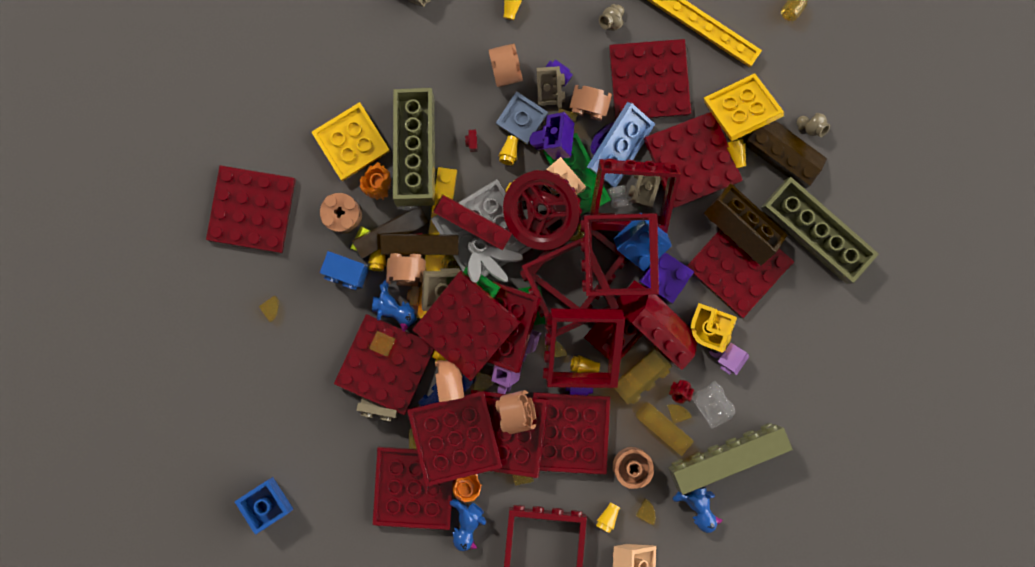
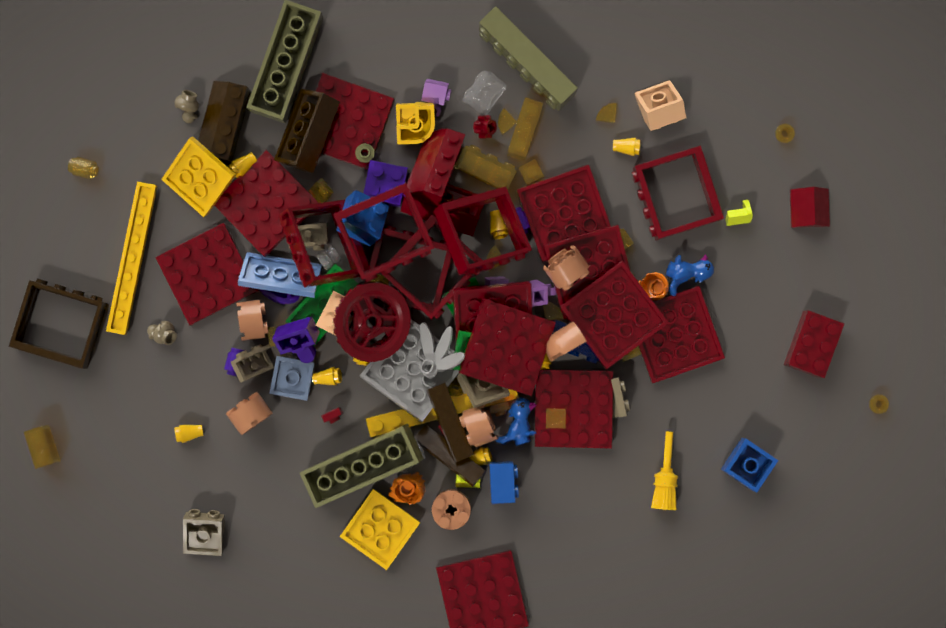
camera: 115 degrees left, 0 degrees up
(270, 308) = (567, 538): clear yellow tile -> none
(283, 421) = (665, 480): none -> yellow piece
(472, 222) = (409, 381): dark red brick -> none
(621, 417) = (531, 172): none -> clear yellow plate
(644, 465) = (582, 138): nougat brick -> none
(683, 214) = (321, 191): none -> clear yellow plate
(696, 268) = (365, 159): none -> olive plate
(699, 502) = (578, 69): blue animal -> none

